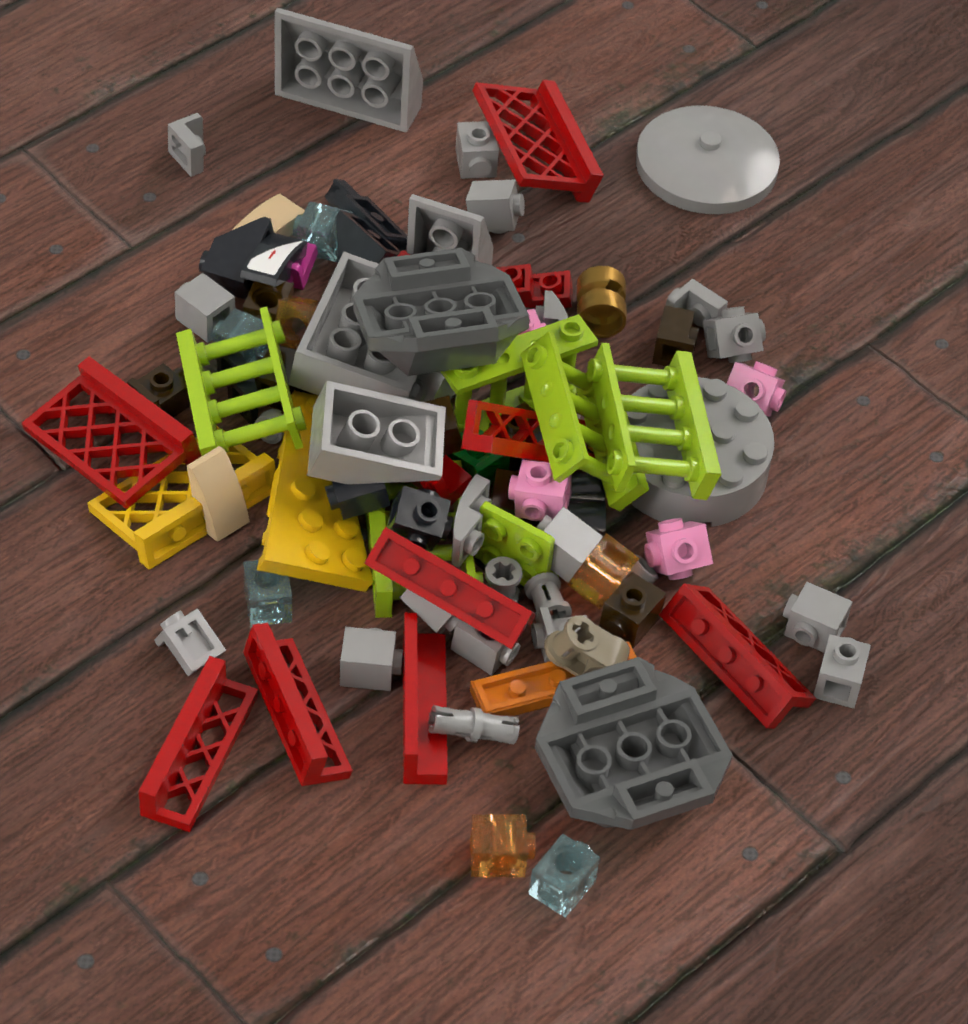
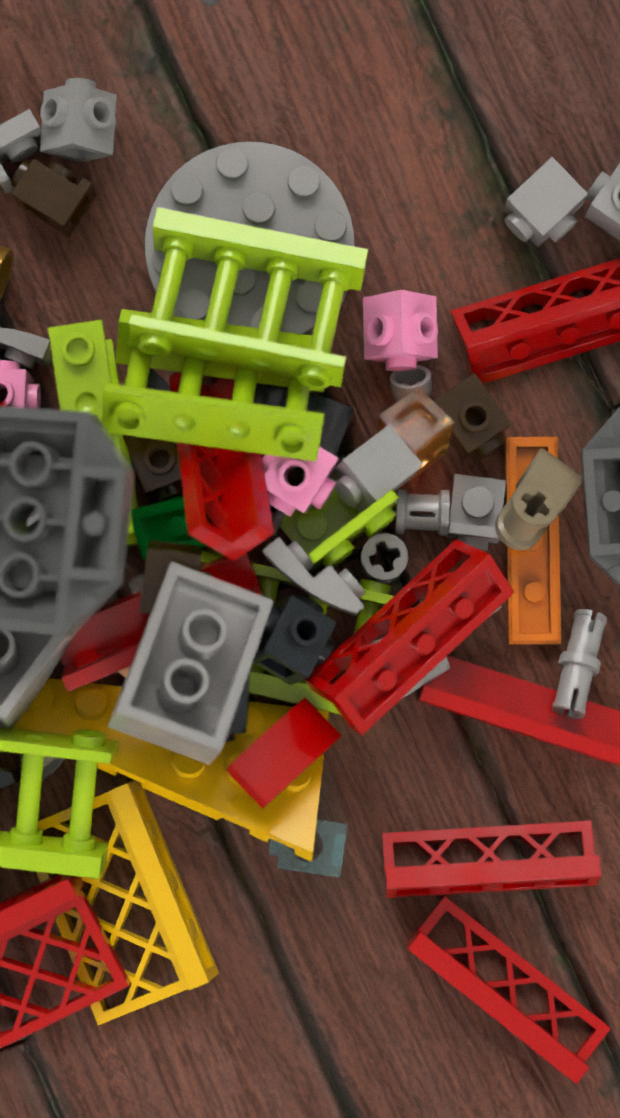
camera: 65 degrees left, 35 degrees up
(190, 640) = (356, 960): light grey bracket -> none
(219, 492) = (161, 870): tan slope -> none
(328, 524) = (283, 753): none -> red slope
(369, 658) = (446, 751): light grey brick -> none
(770, 387) = (176, 130): bright pink brick -> none

